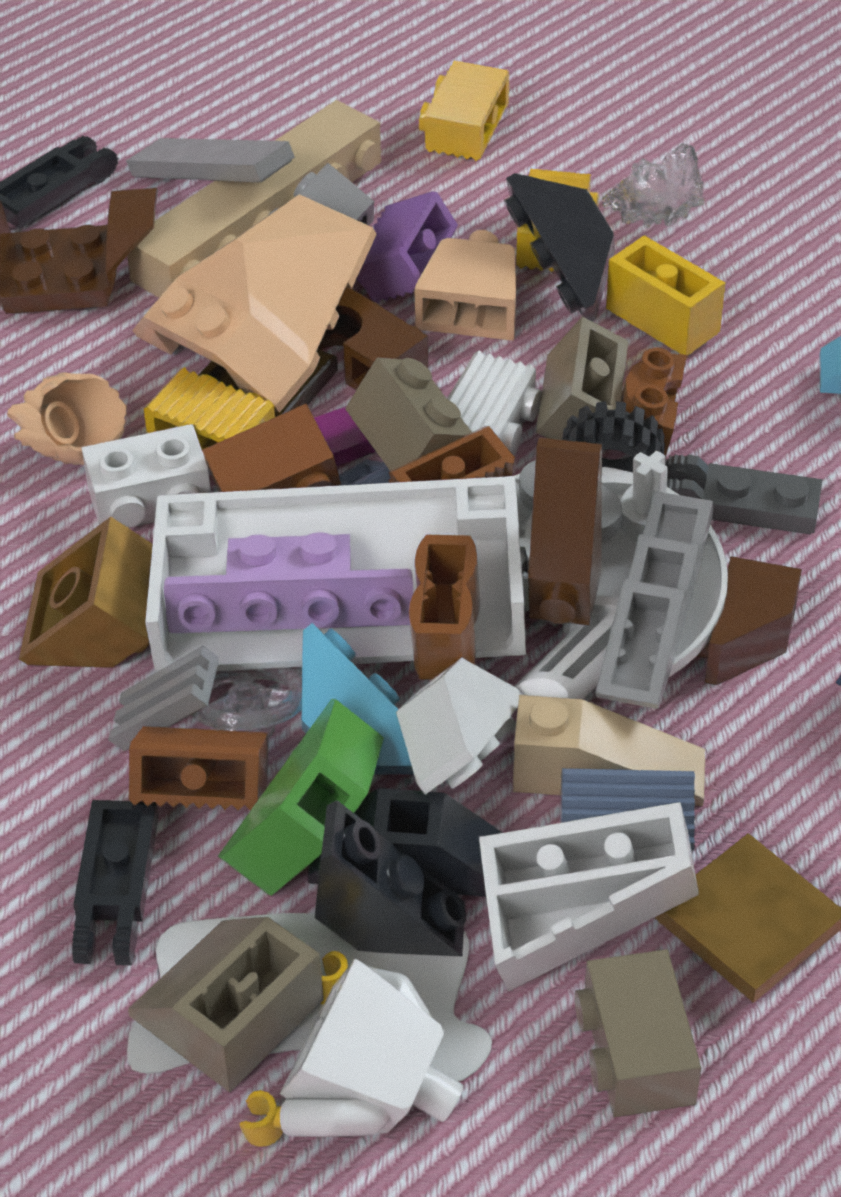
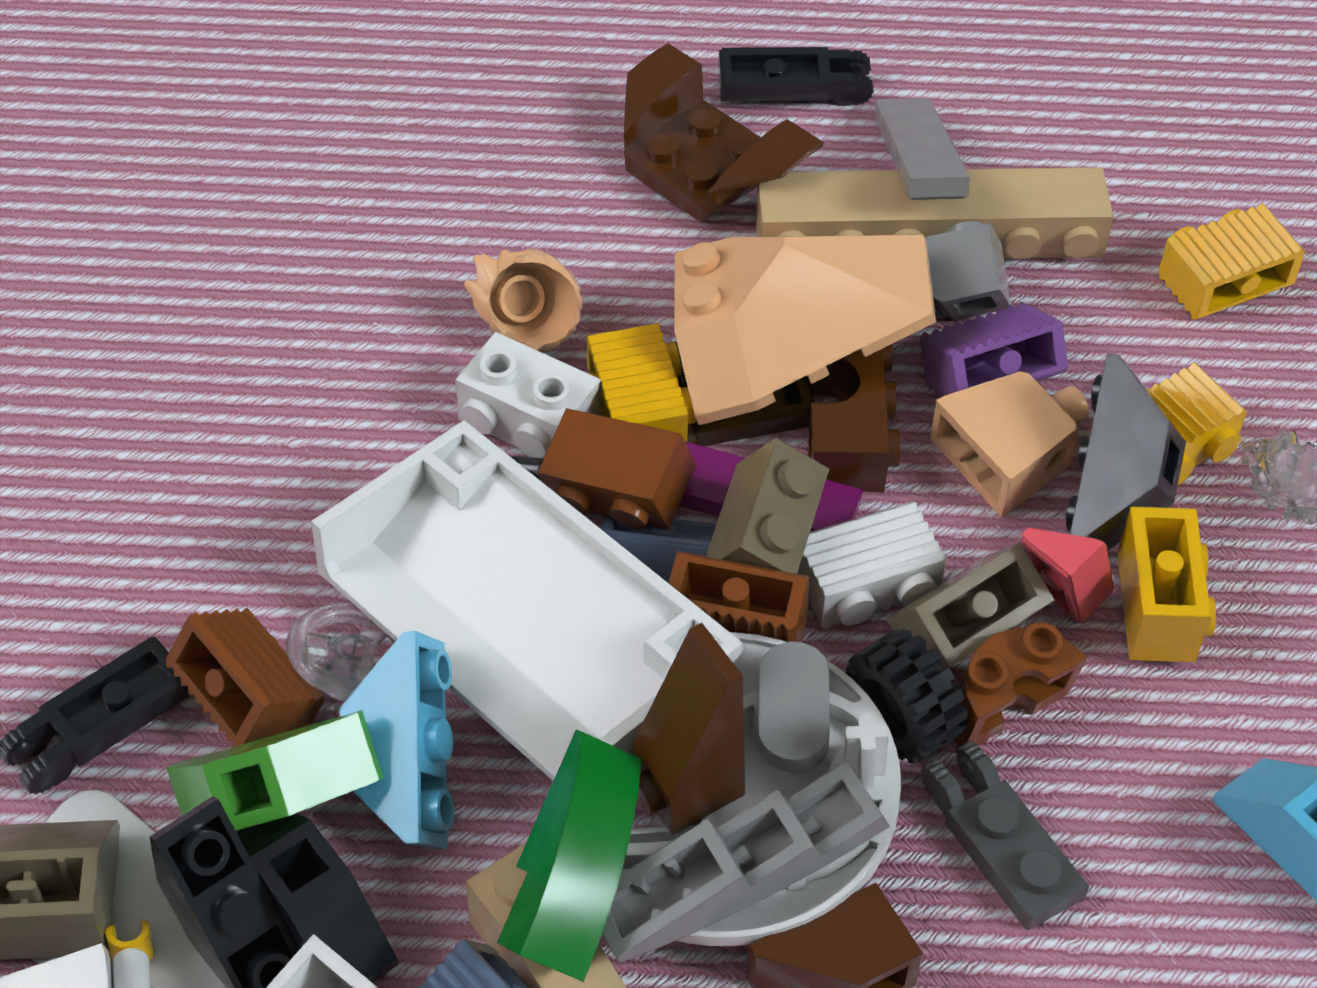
camera: 45 degrees right, 5 degrees up
(91, 601) = (350, 460): pearl gold slope -> none
(166, 696) = (306, 595): light grey tile -> none
(288, 586) = (470, 582): lavender bracket -> none
(444, 603) = (530, 714): dark orange brick -> none
(455, 723) = (435, 818): white slope -> none
(580, 663) = (575, 857): none -> green slope
(616, 310) = (1072, 568): none -> coral slope

